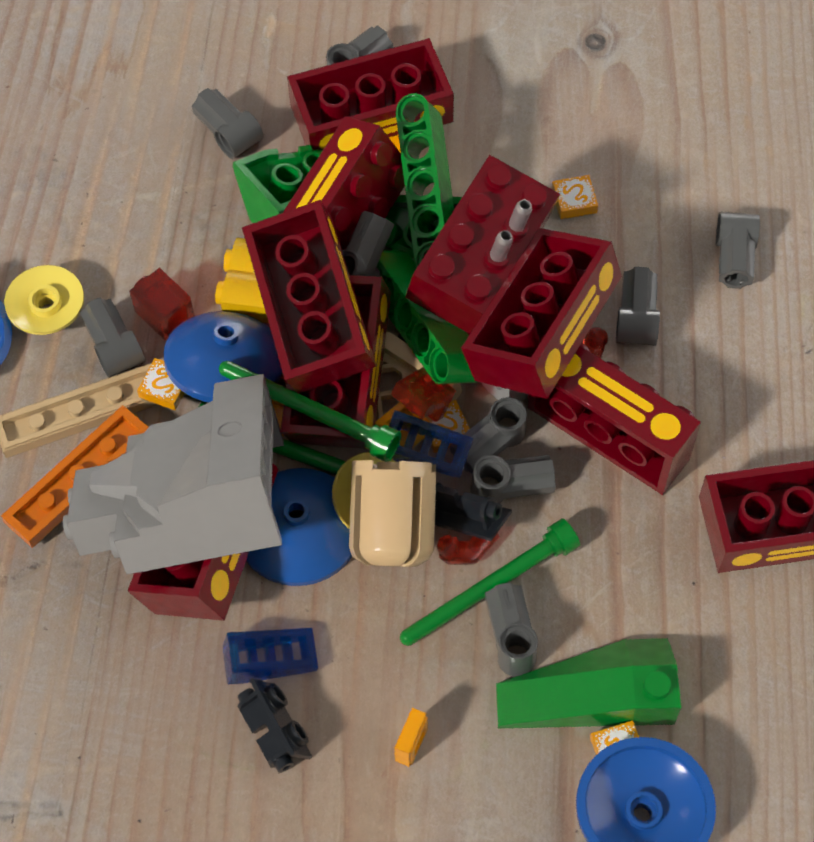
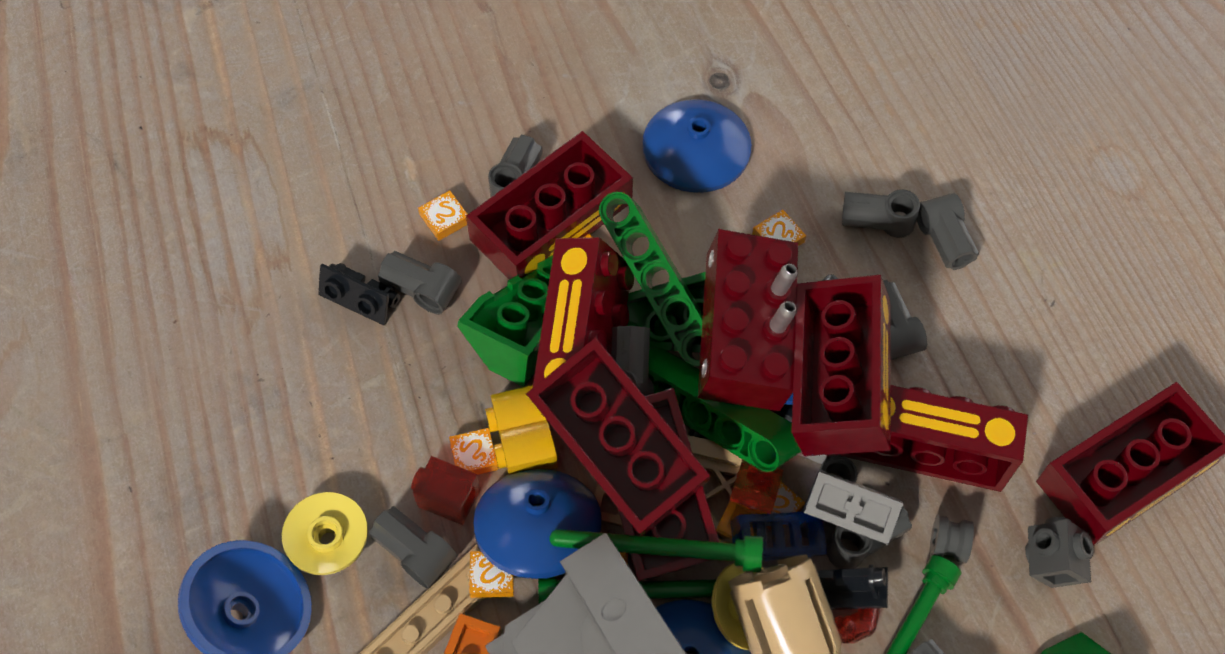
camera: 25 degrees left, 0 degrees up
(164, 112) = (349, 290): none -> black hinge
(201, 282) = (474, 451): none -> tile
(274, 74) = (443, 215): none -> tile
(500, 441) = (854, 507): none -> light grey hinge
(541, 92) = (696, 159): none -> blue dish
(587, 511) = (952, 538): none -> dark grey wheel
(678, 560) = (1059, 553): none -> dark grey brick
(681, 209) = (879, 211): none -> dark grey piece

